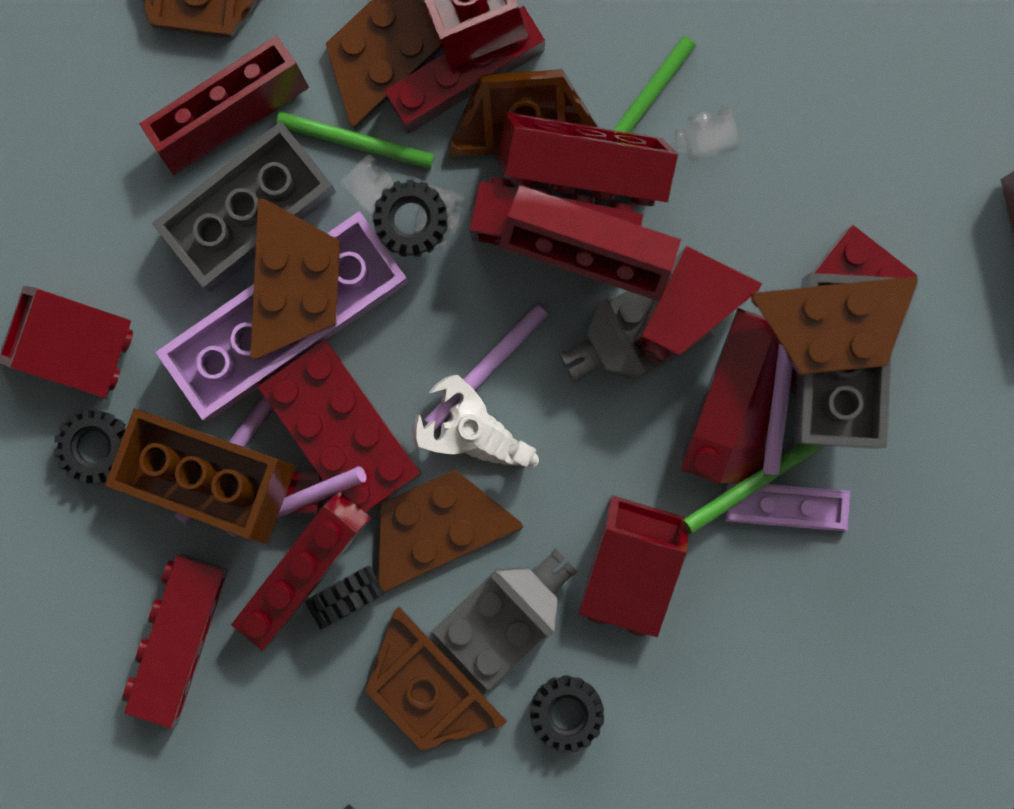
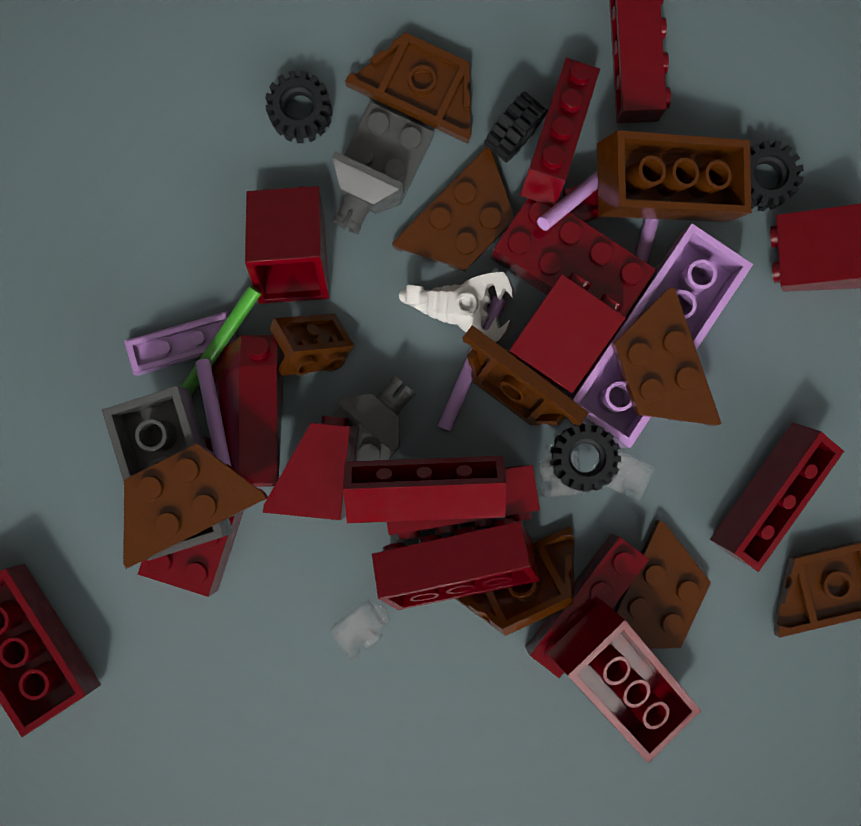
camera: 155 degrees right, 0 degrees up
(217, 221) = (747, 392): dark grey brick -> none
(356, 140) = (653, 510): bright green bar -> none
(379, 353) = (568, 331): none -> dark red slope
(450, 318) = (516, 385): none -> reddish brown wing
(648, 448) = (311, 343): none -> reddish brown bracket
(655, 85) = (420, 653): bright green bar -> none

